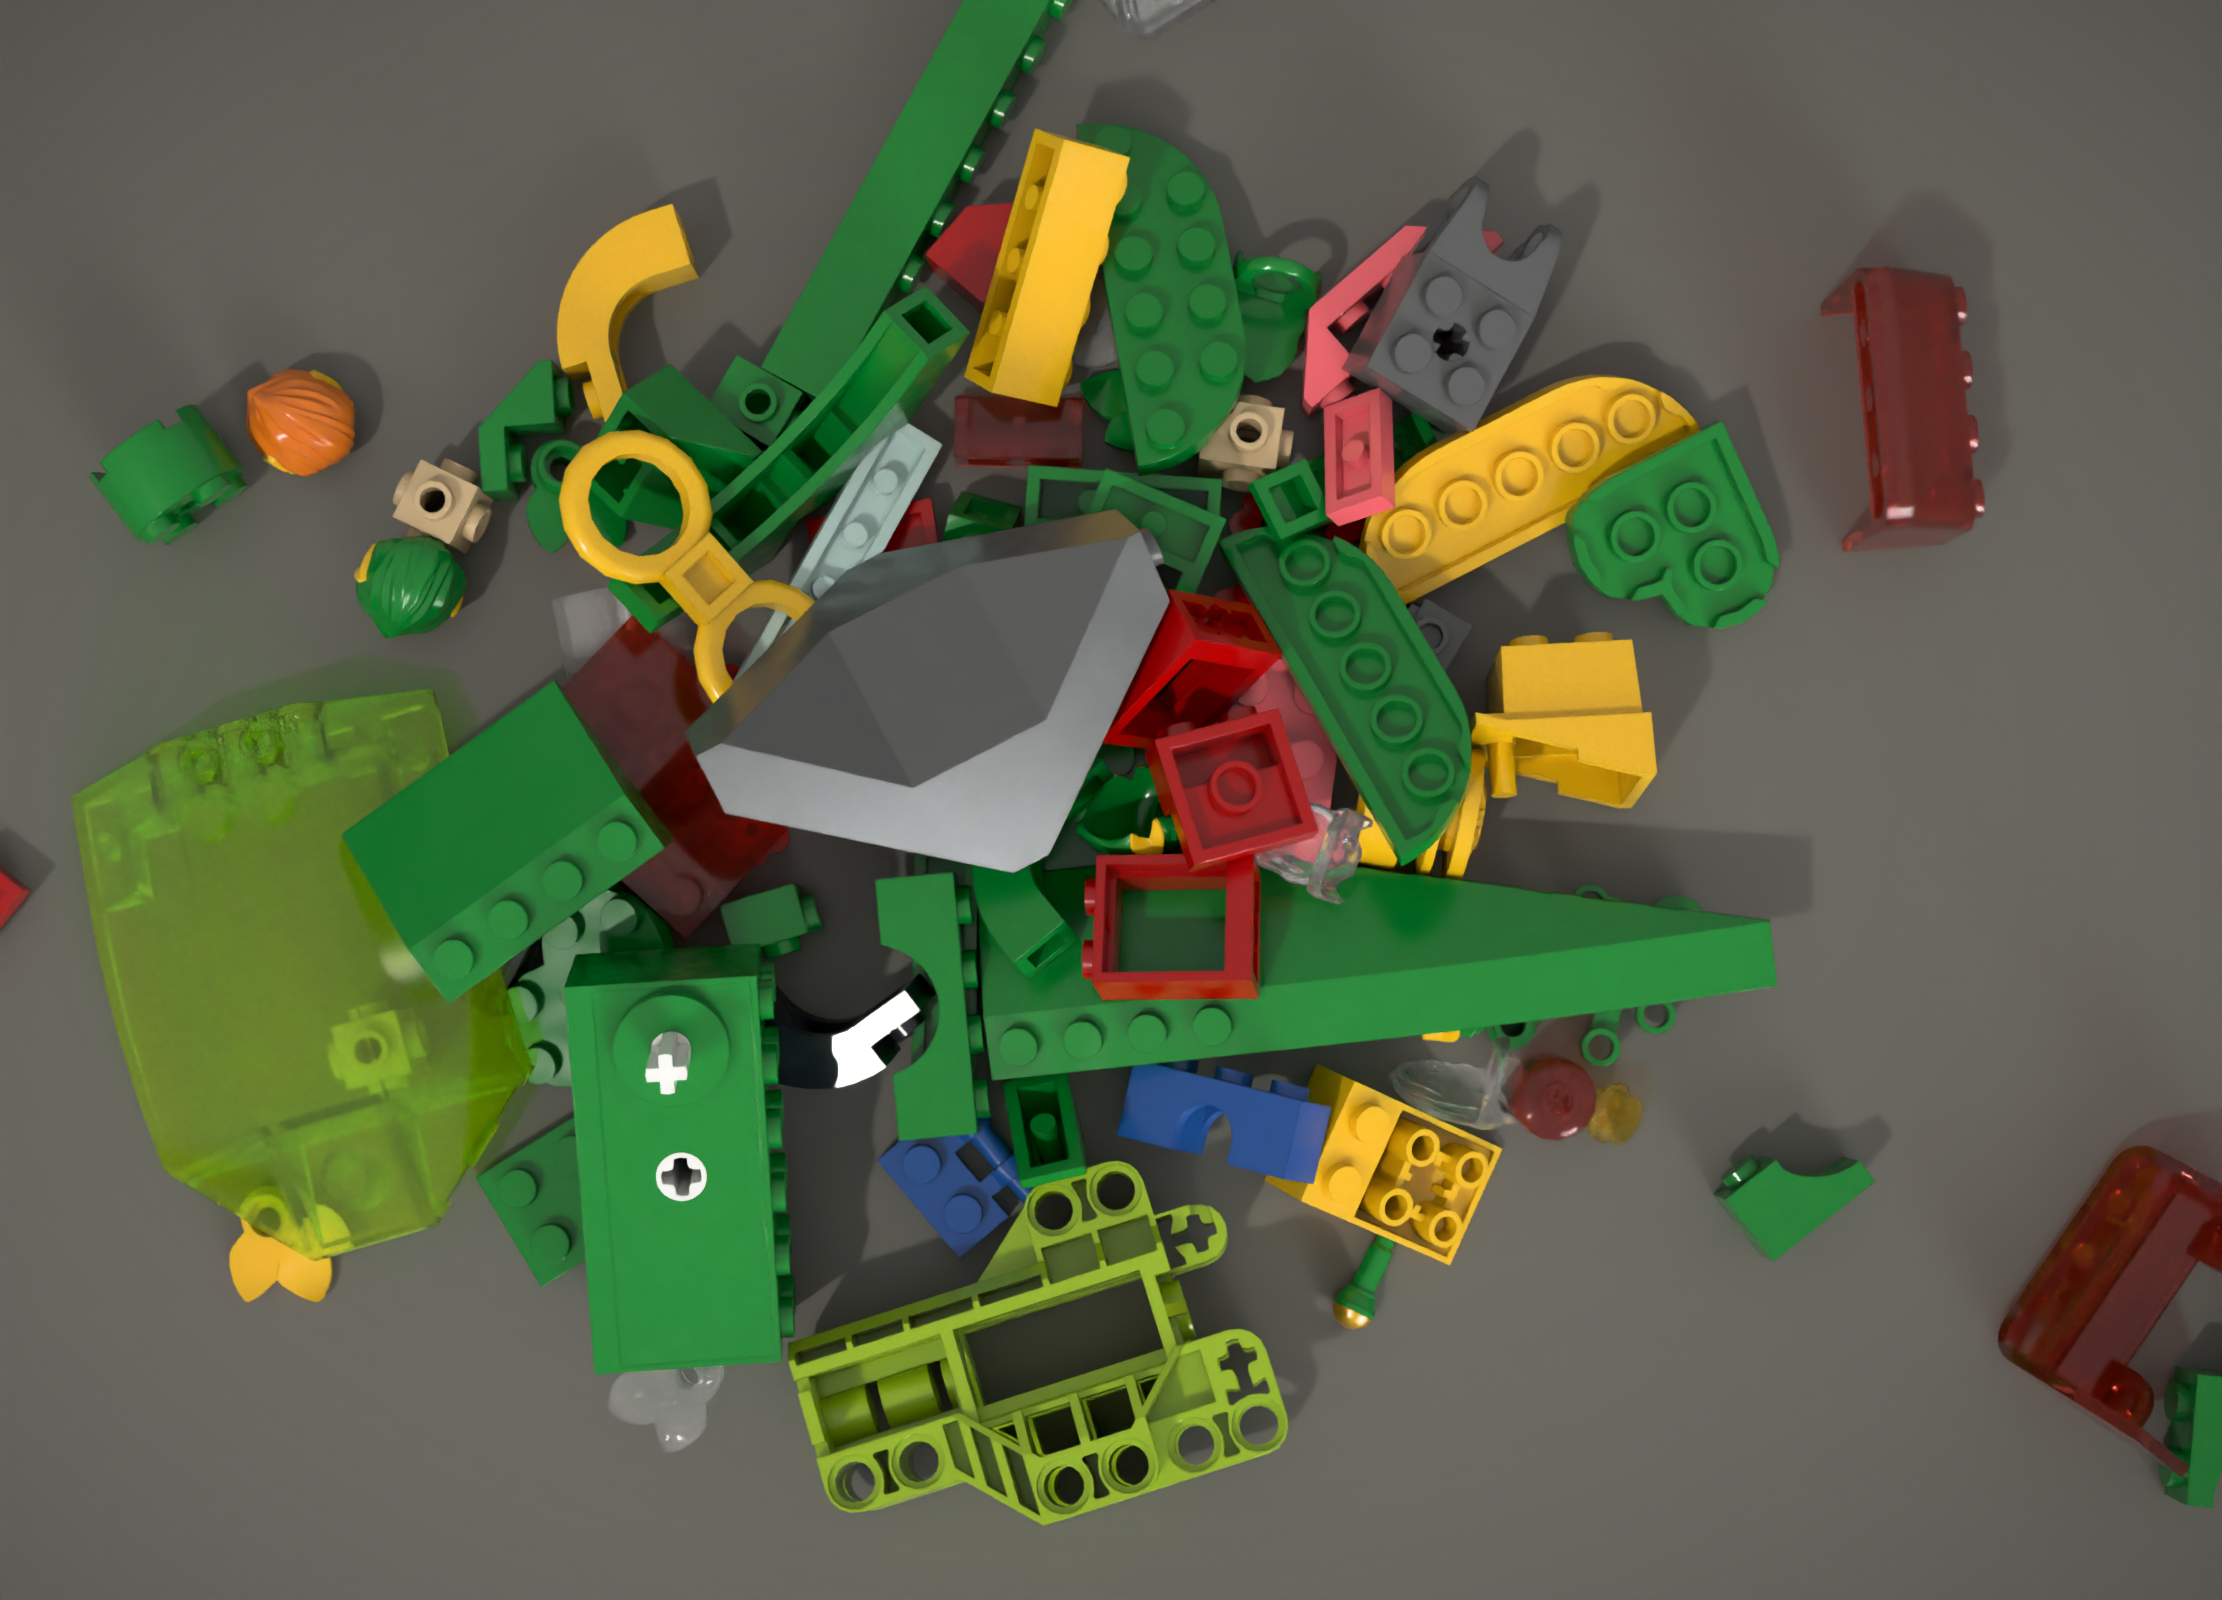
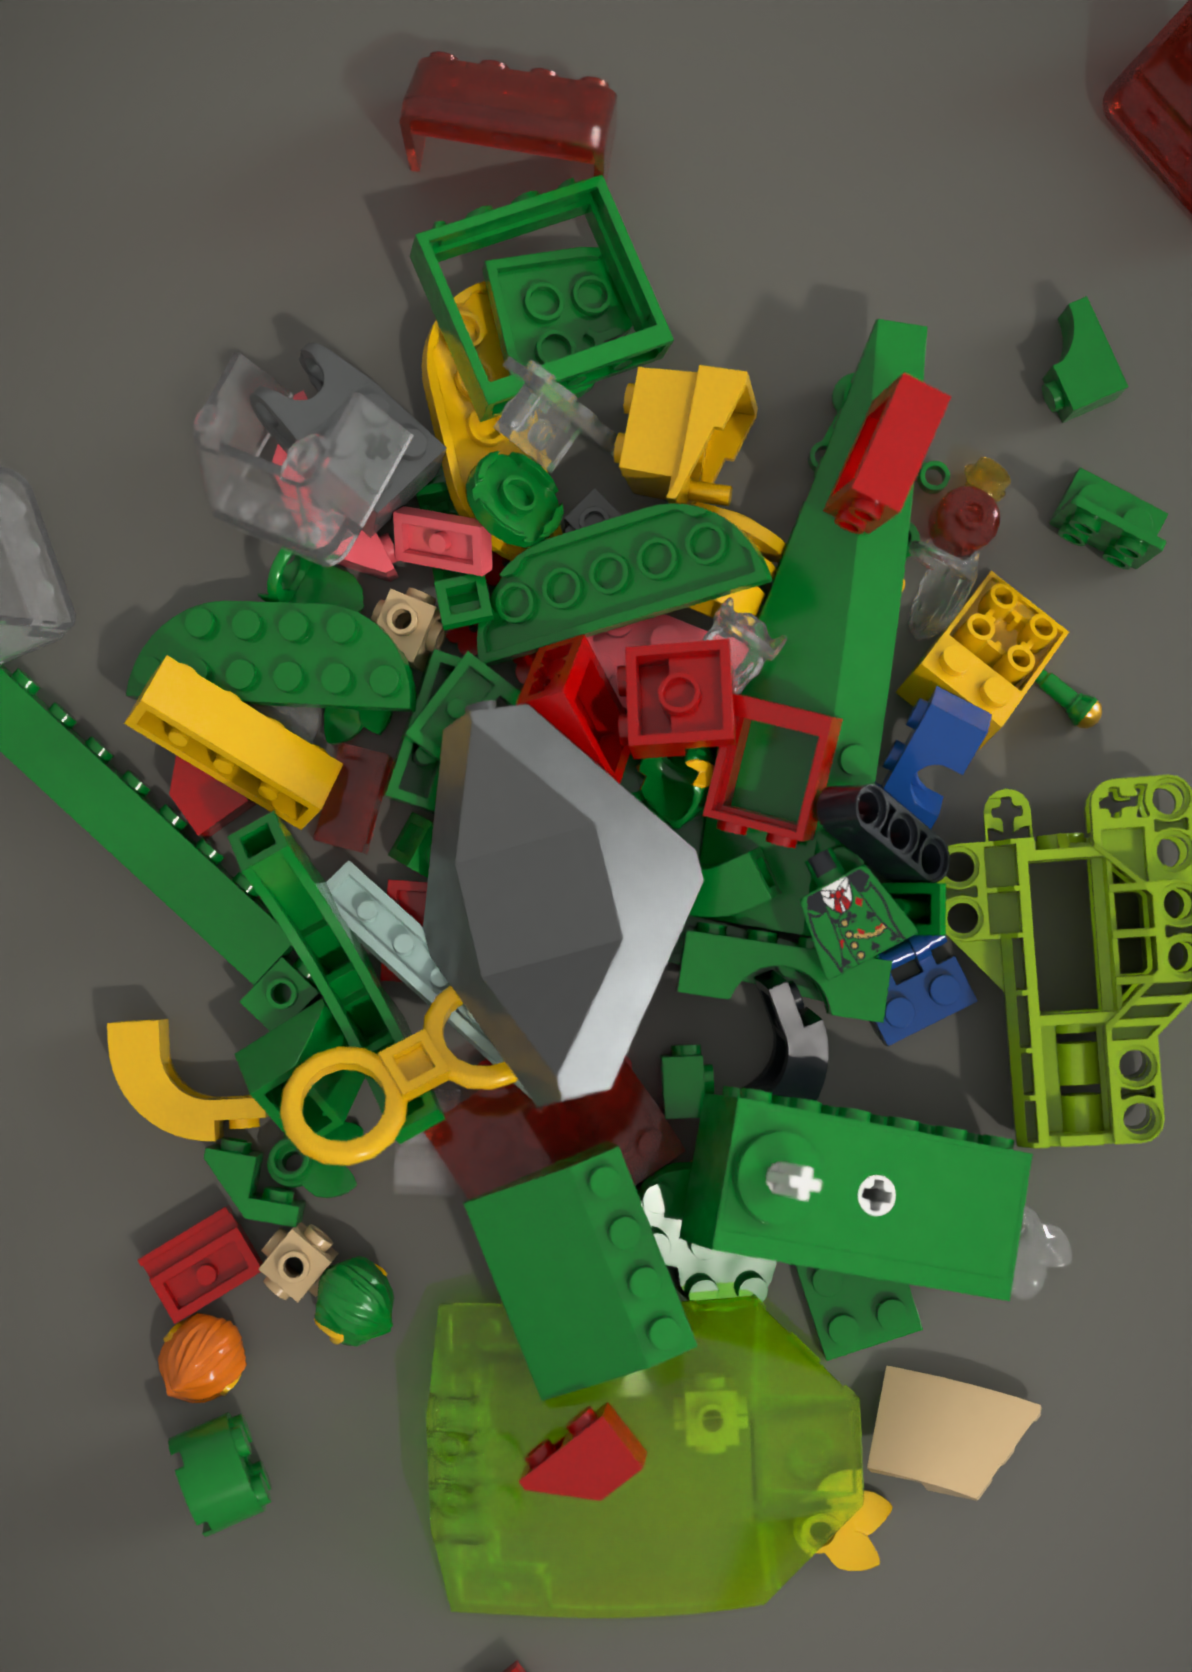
camera: 85 degrees left, 0 degrees up
(282, 906) = (587, 1460): none -> red slope
(413, 392) = (201, 1264): none -> red plate
(423, 1343) = (945, 1432): none -> tan slope
(1017, 1065) = (850, 915): none -> torso
(1128, 1082) = (883, 833): none -> black beam
(1378, 289) = (321, 490): none -> clear windscreen
(1431, 530) = (514, 499): none -> green tile
(1537, 544) = (548, 418): none -> clear bracket
(1591, 966) = (886, 455): none -> red window
(1602, 1280) = (1109, 521): none -> green bracket
(1790, 454) = (524, 215): none -> green window

